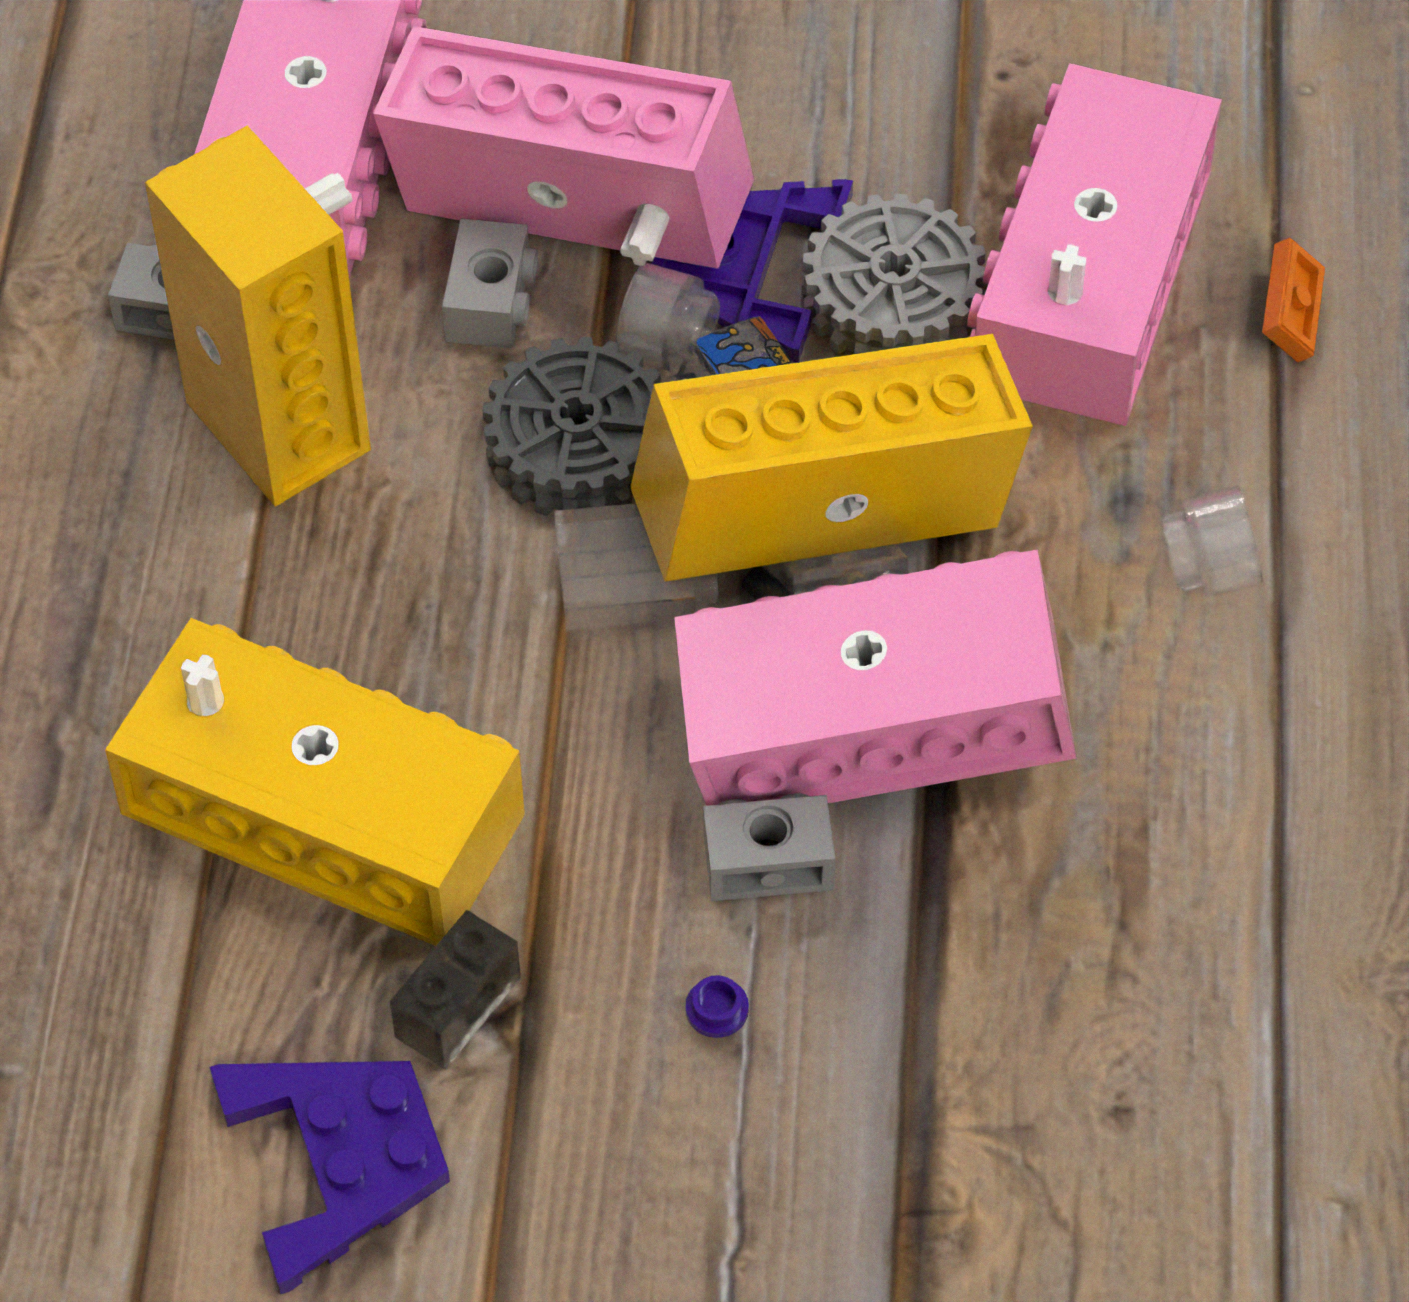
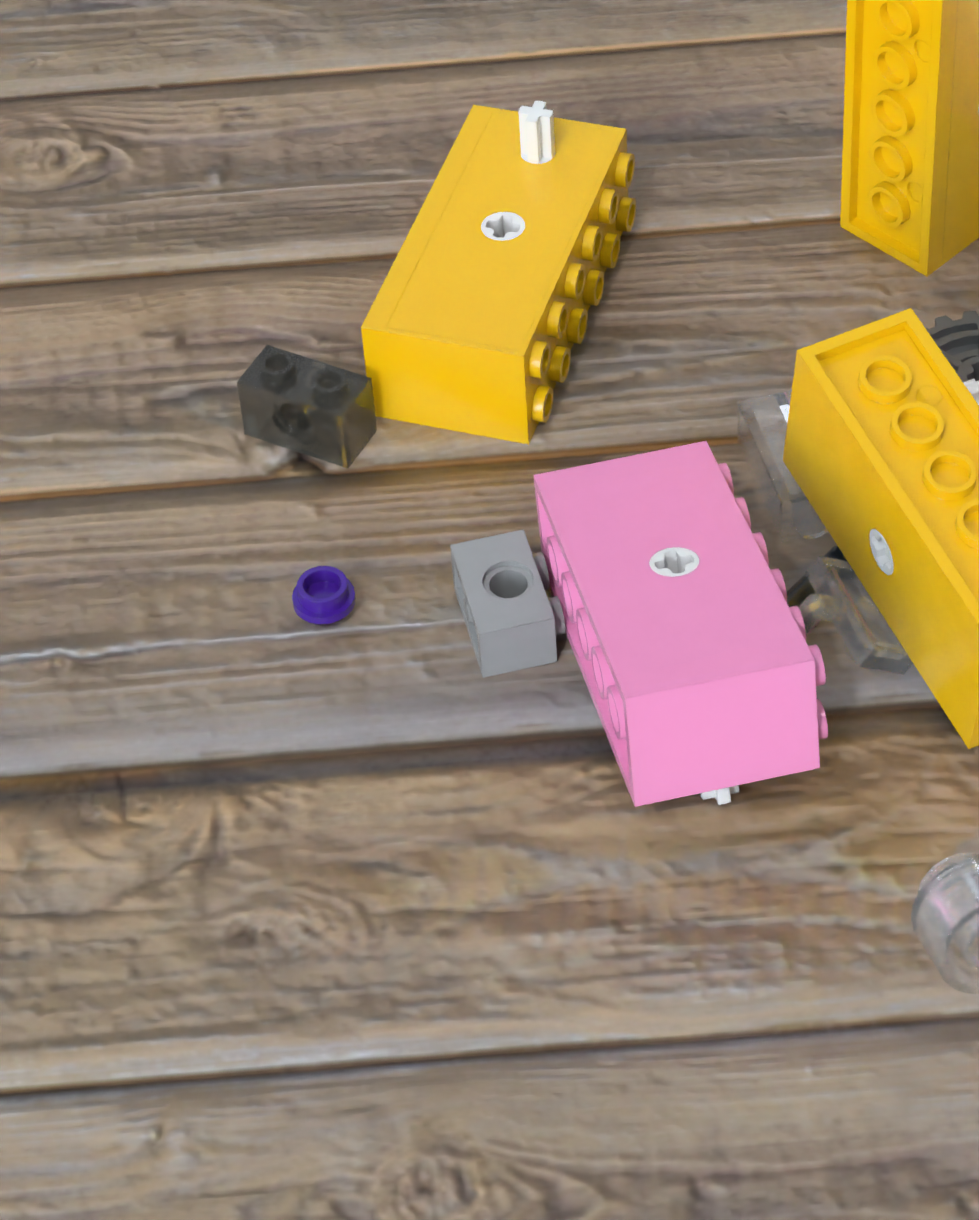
camera: 85 degrees right, 10 degrees down
(364, 1142) = (152, 390): dark purple wing -> none

